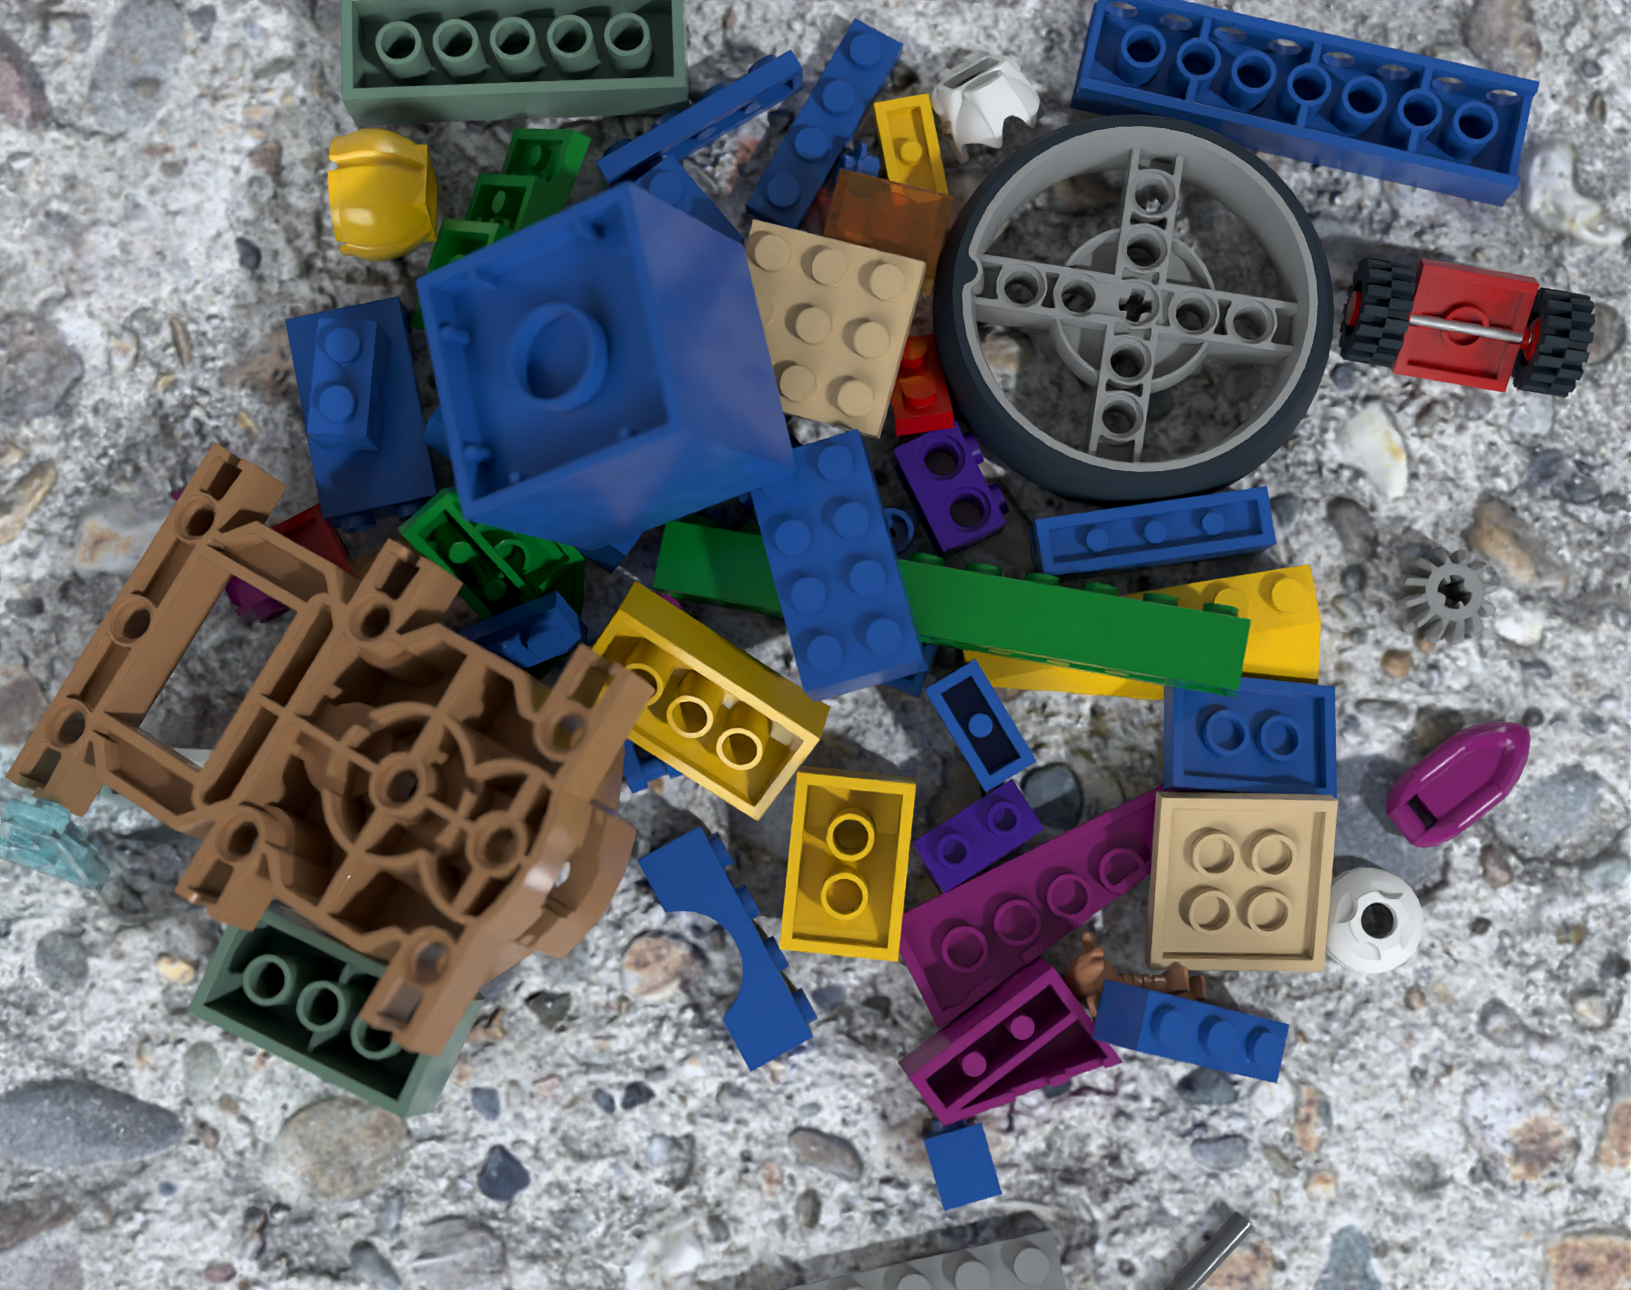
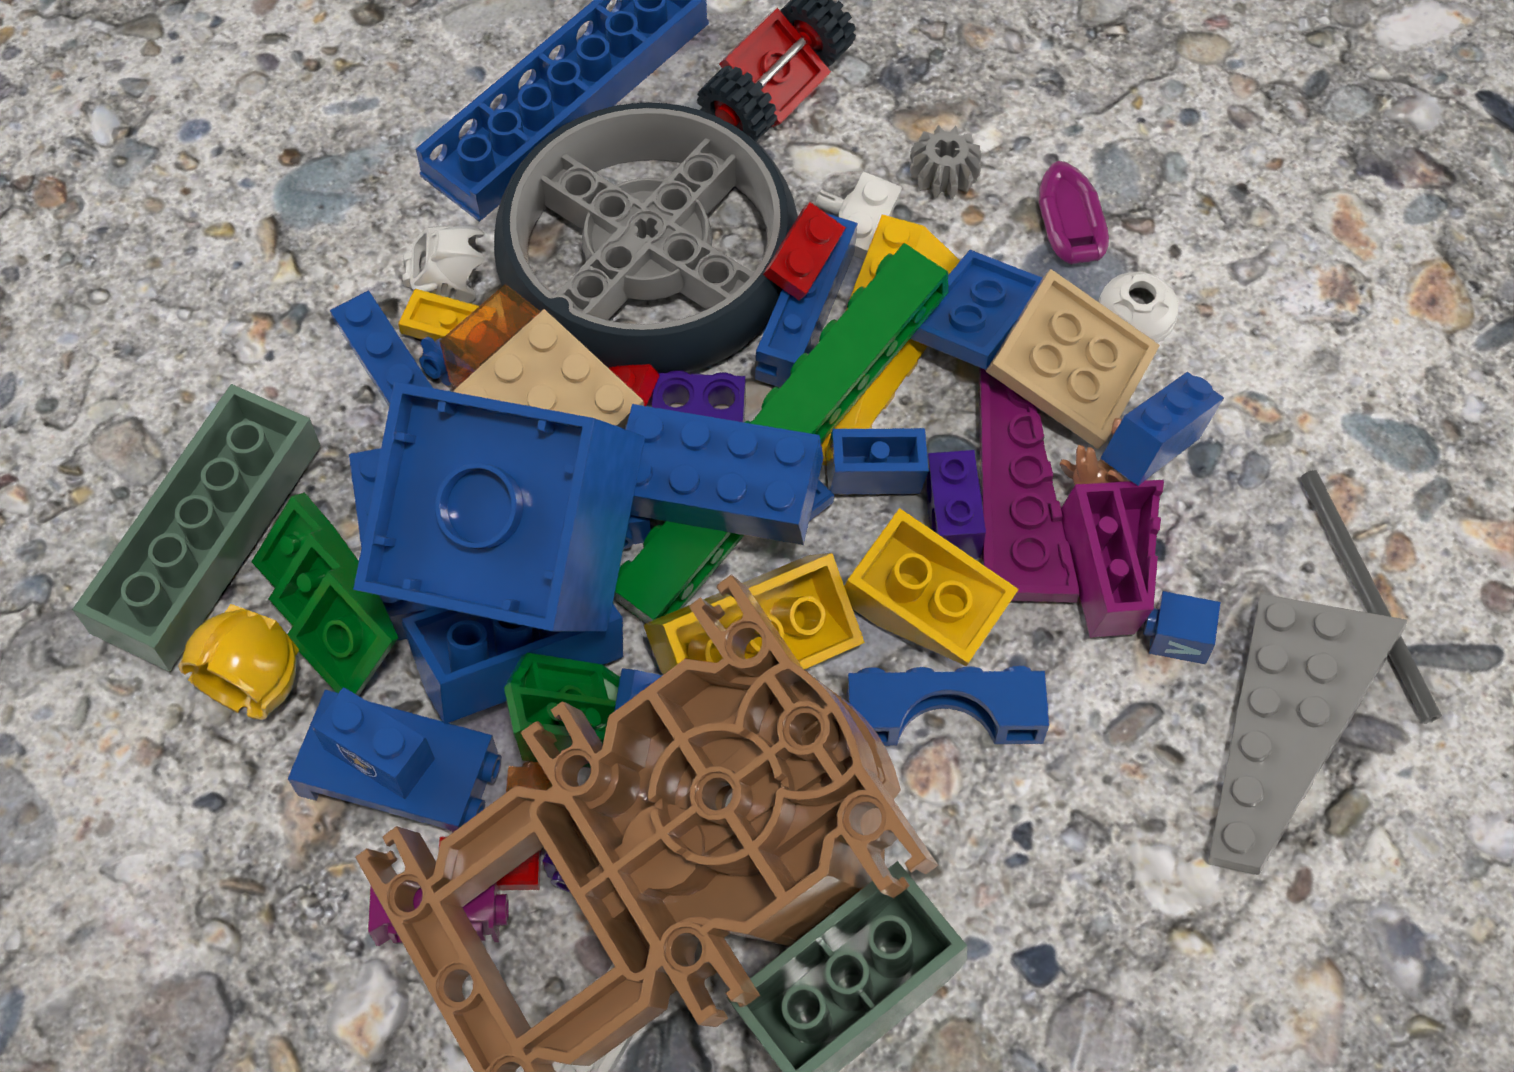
camera: 60 degrees left, 20 degrees down
(716, 114) = (335, 423): blue plate -> none
(1192, 505) = (804, 251): none -> red plate
(1323, 533) = (864, 206): none -> white plate

